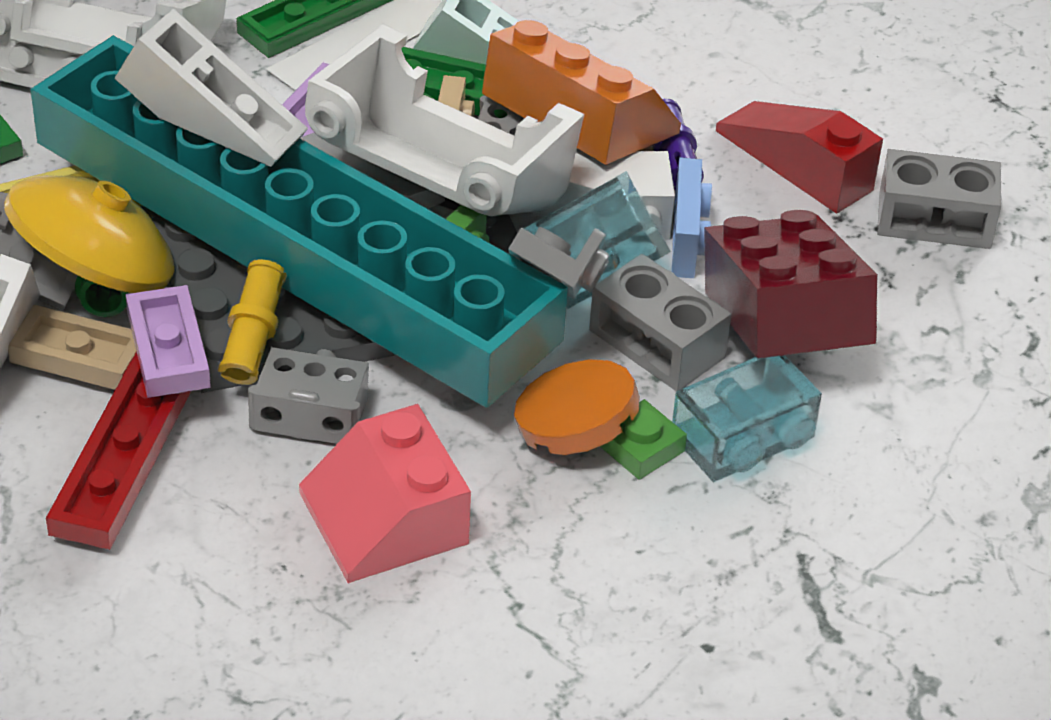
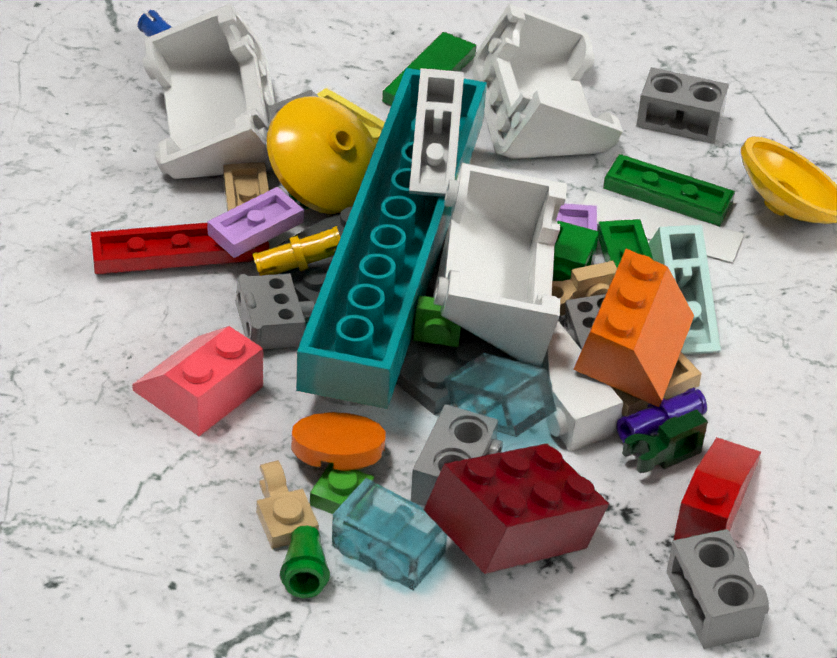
camera: 65 degrees right, 0 degrees up
(552, 257) = (421, 361): light grey bracket -> none
(653, 498) = (280, 509): none -> tan plate
(690, 203) = (587, 440): light blue plate -> none
(718, 147) = (675, 442): none -> dark green plate
(751, 503) = (305, 565): none -> green cone

